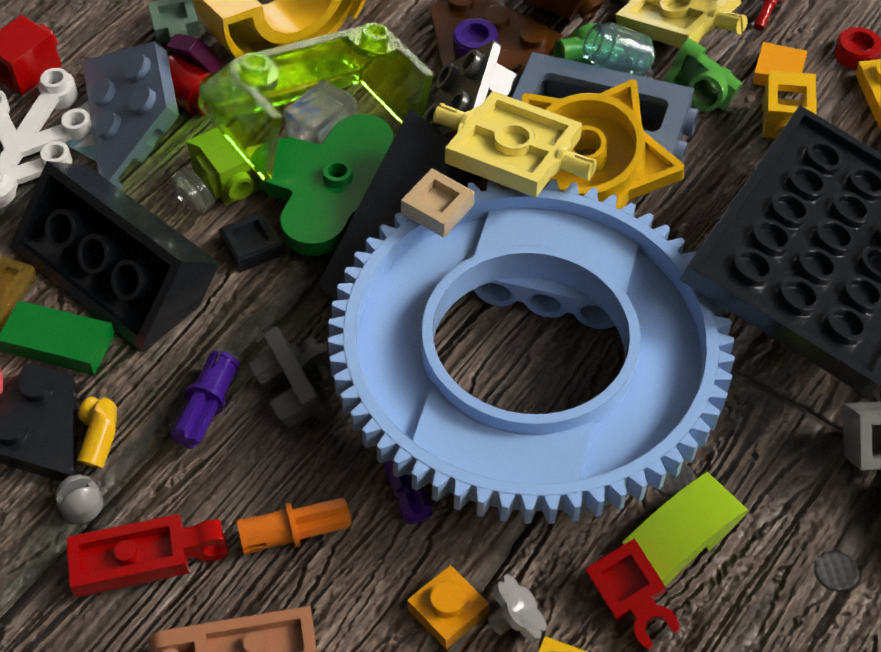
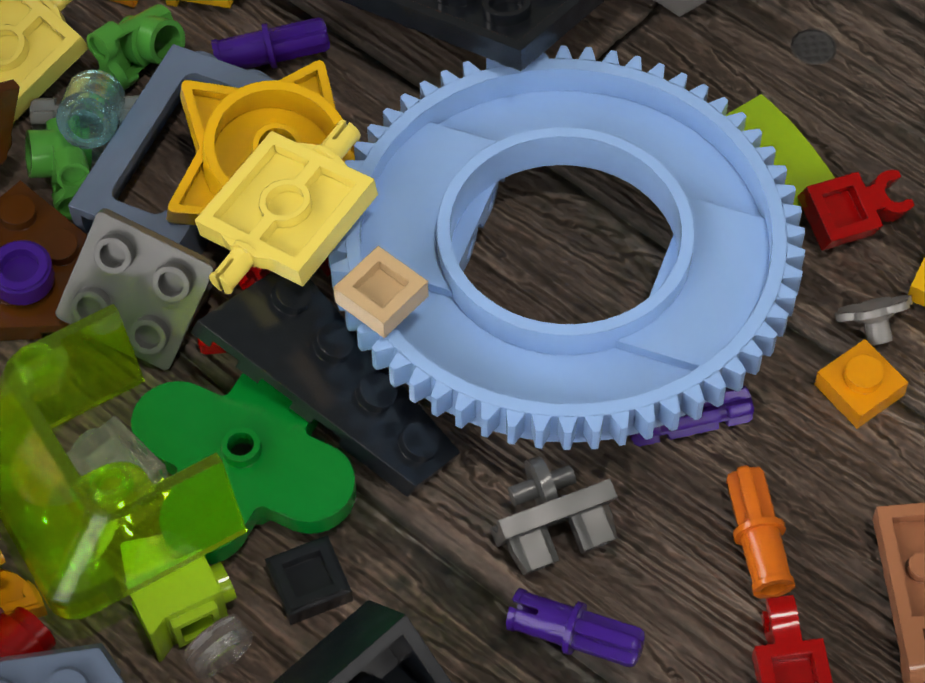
camera: 85 degrees left, 5 degrees up
(722, 156) = (273, 44): none -> dark purple axle

